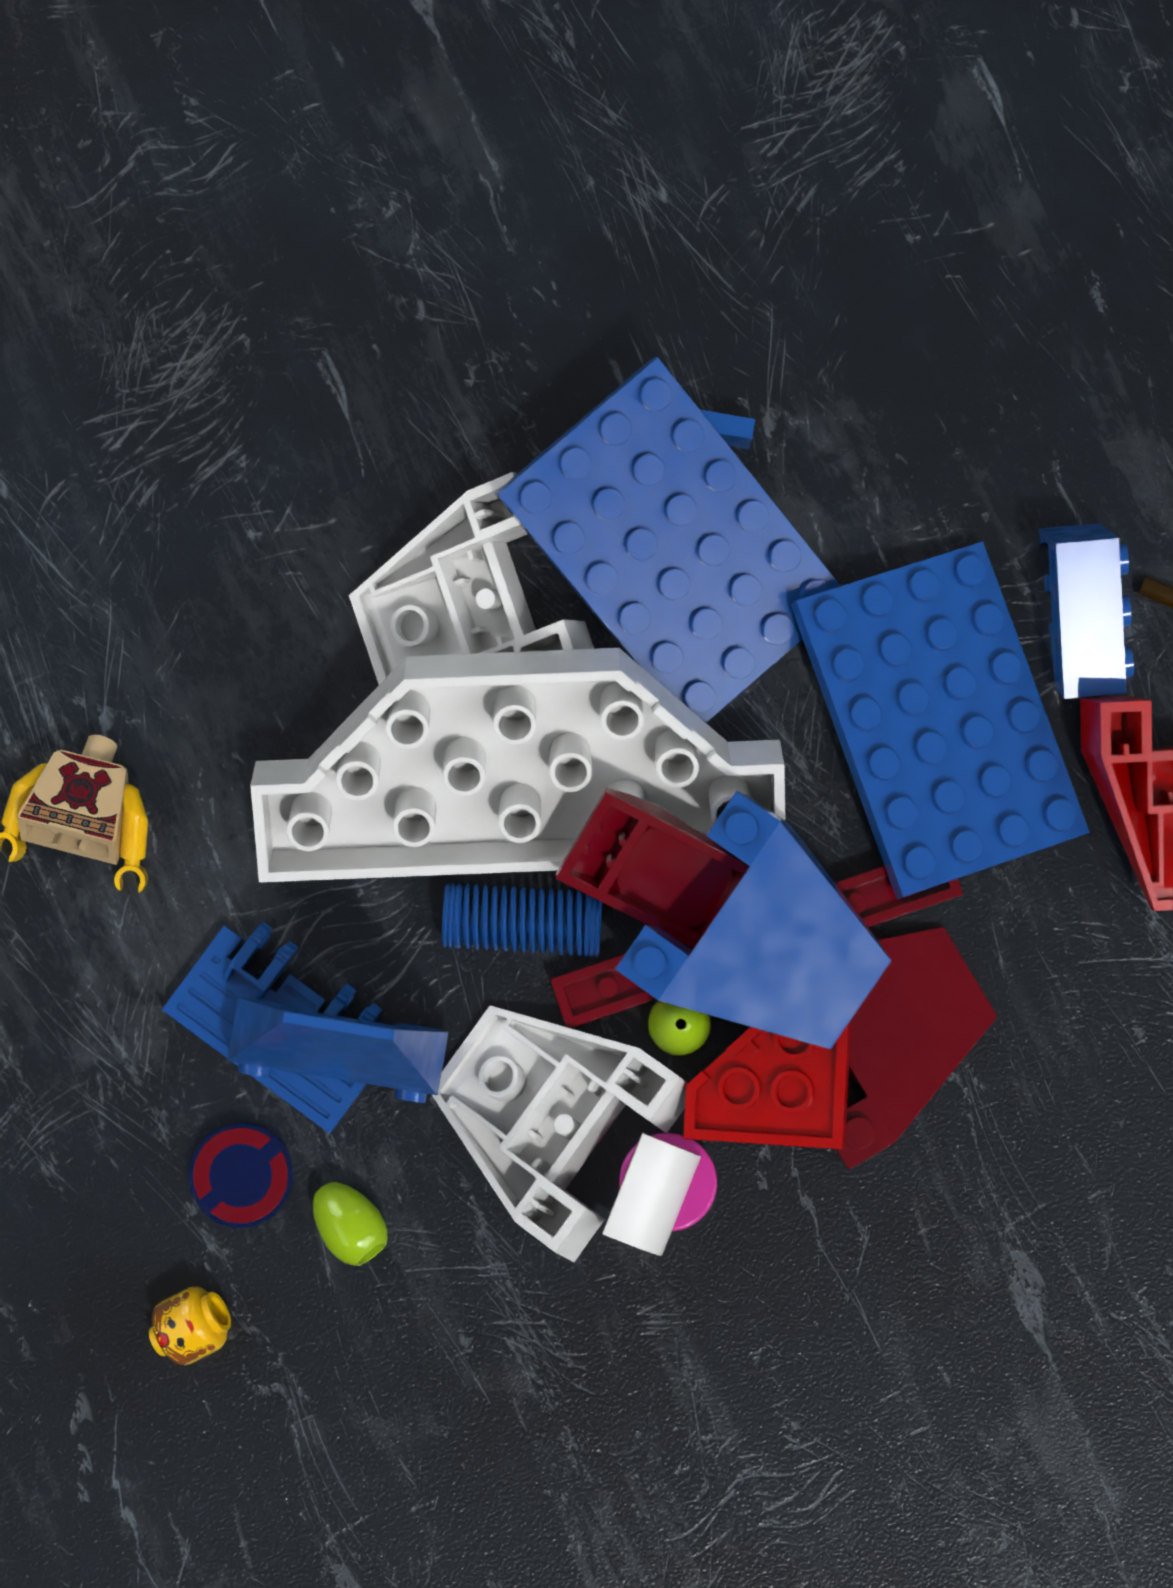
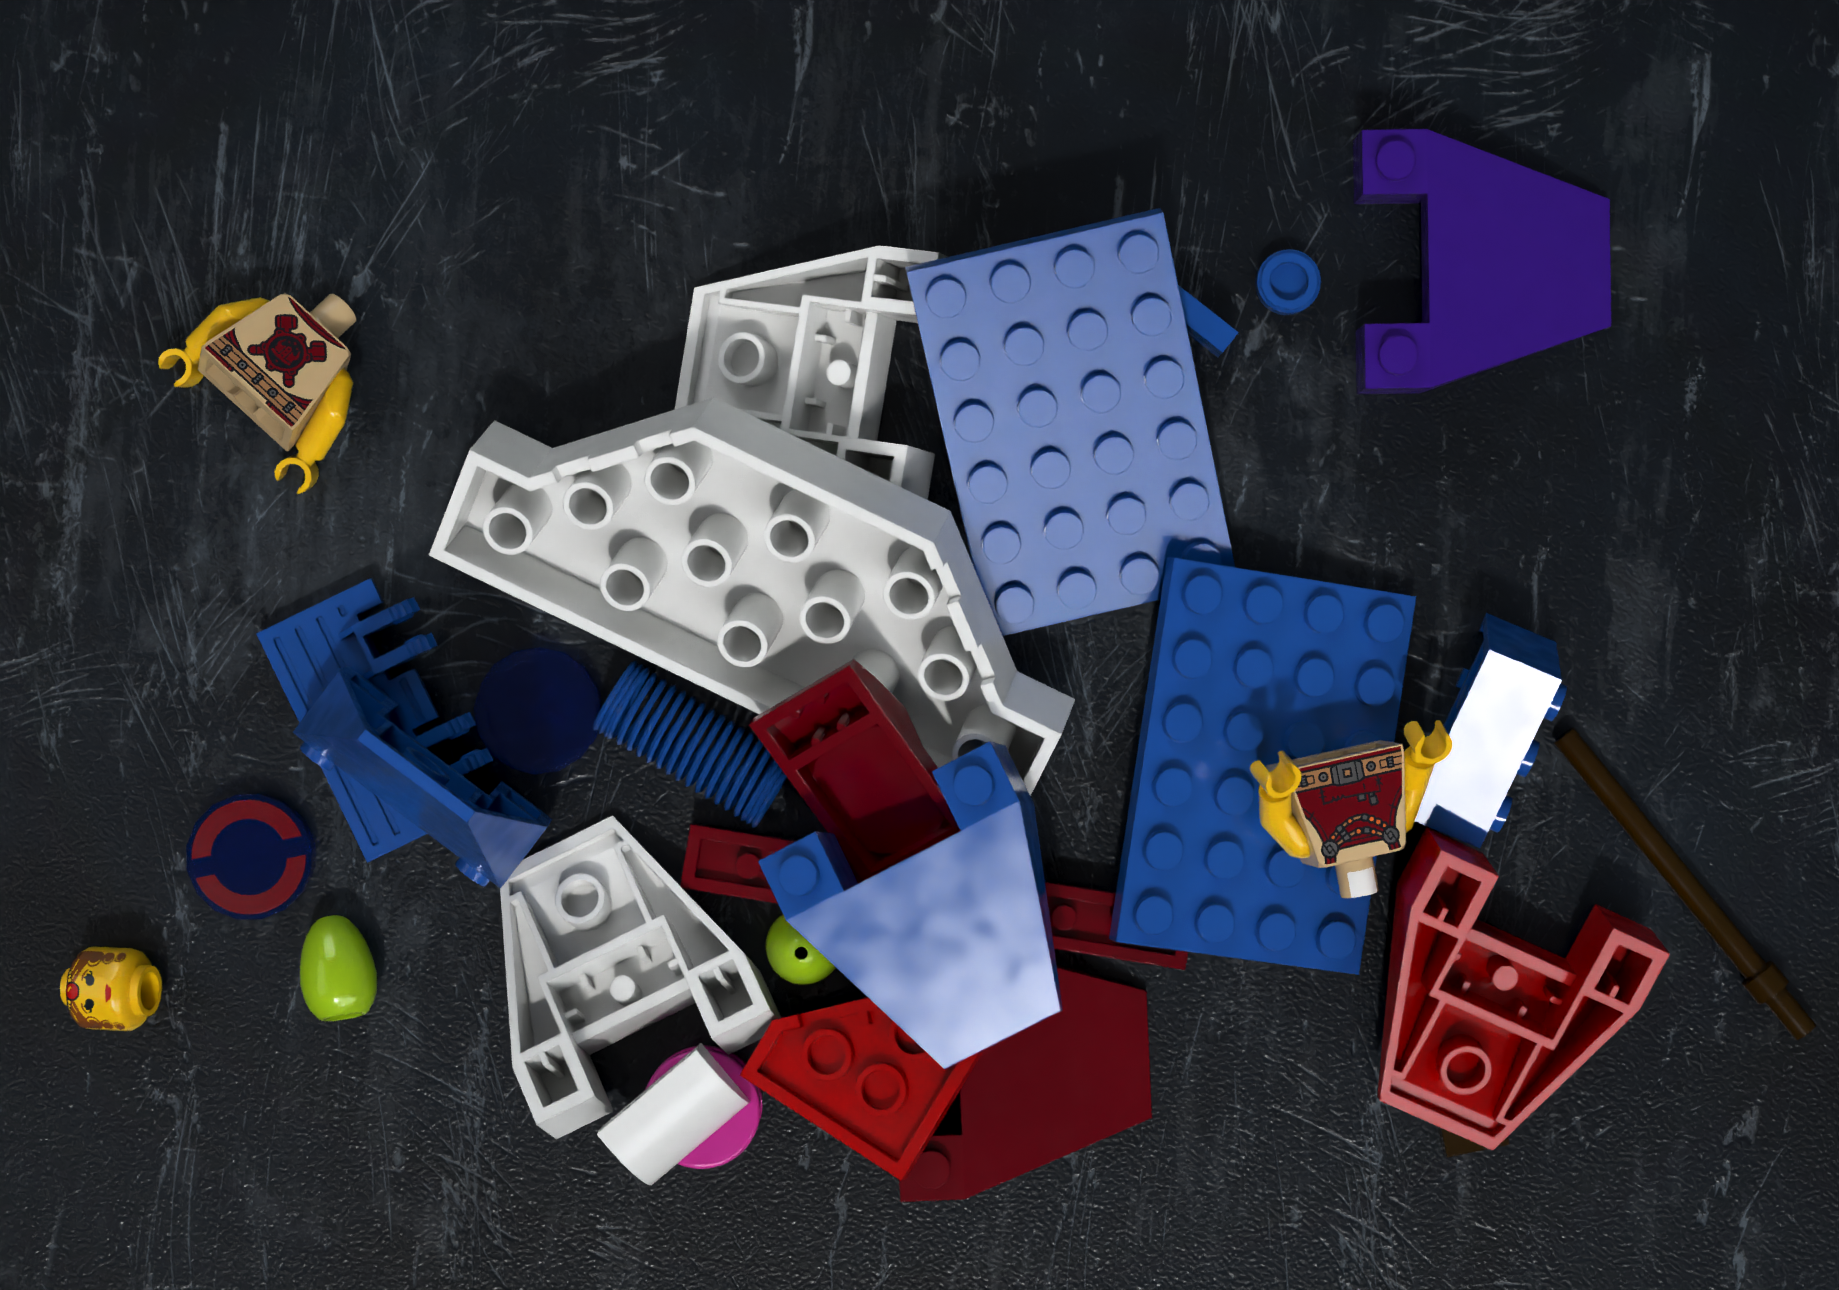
camera: 20 degrees right, 5 degrees up
(395, 958) = (537, 710): none -> clear blue tile
(770, 369) = (1288, 282): none -> blue tile
(916, 272) = (1503, 260): none -> dark purple wedge
(1016, 707) = (1349, 802): none -> torso

